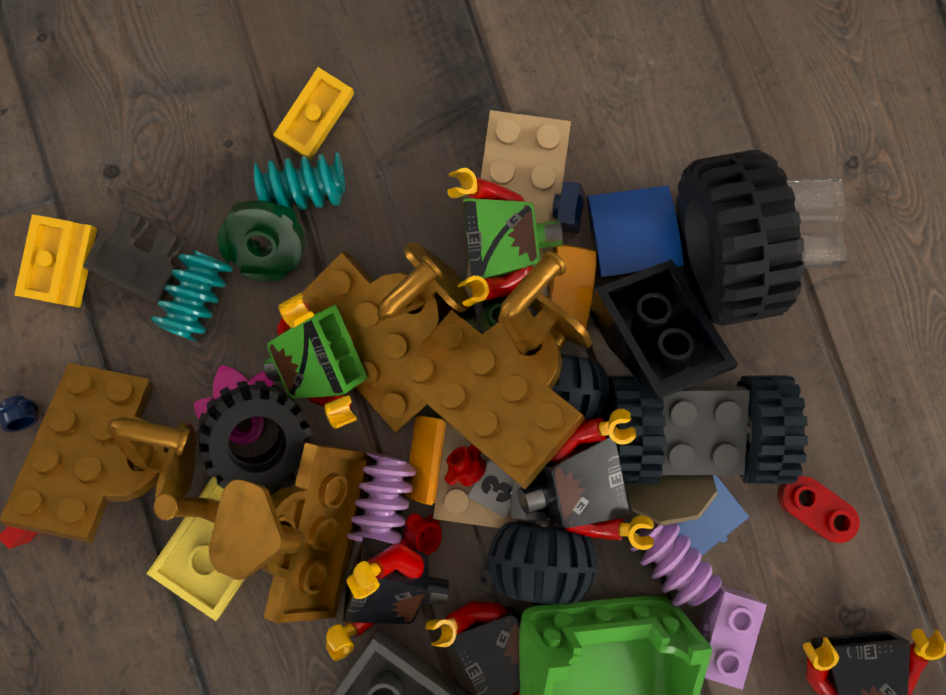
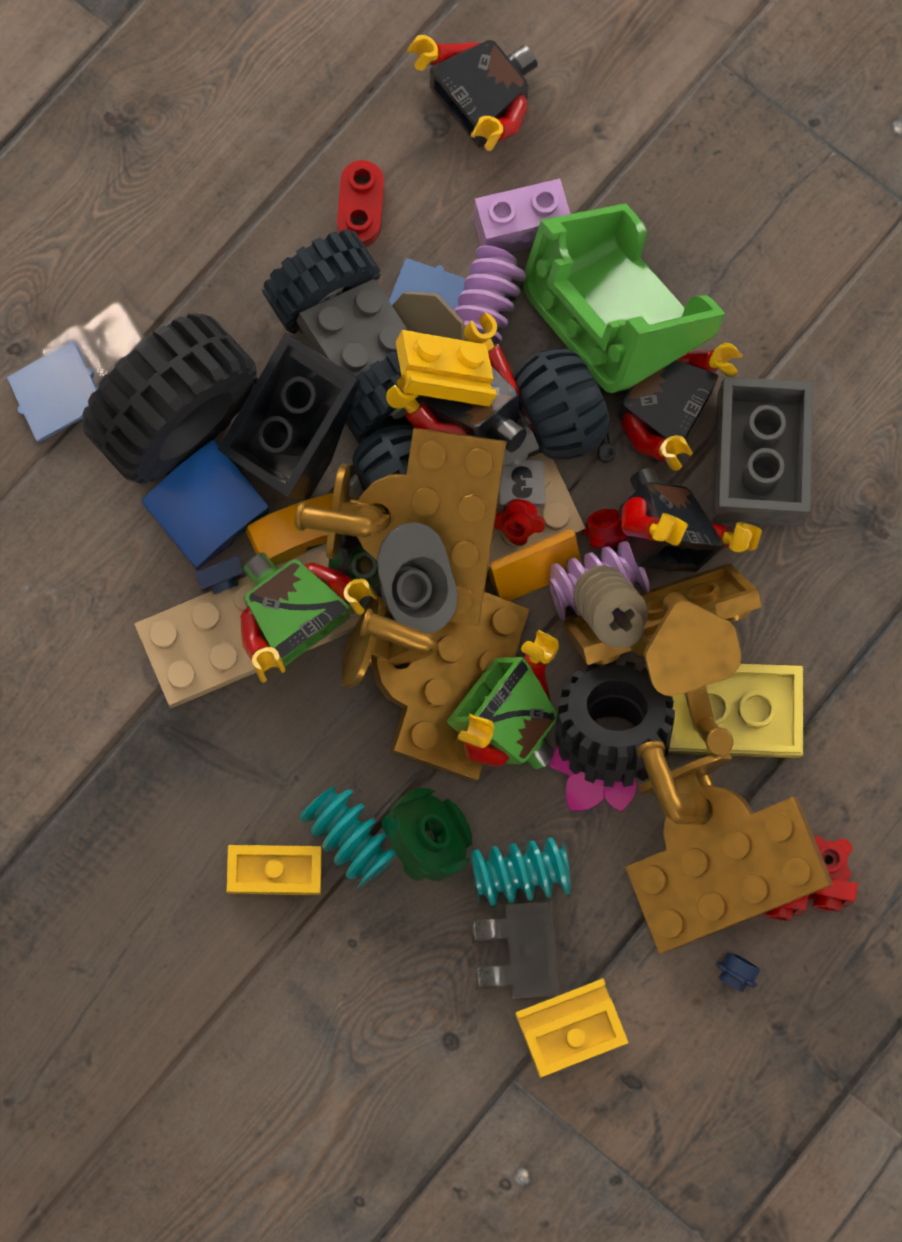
camera: 125 degrees left, 10 degrees down
(54, 552) = (839, 852): none -> red plate
(335, 490) = (611, 606): none -> dark tan piece
(449, 336) = (417, 577): none -> dark grey piece
(621, 476) = (445, 368): none -> yellow plate
(807, 167) = (53, 390): none -> medium blue piece

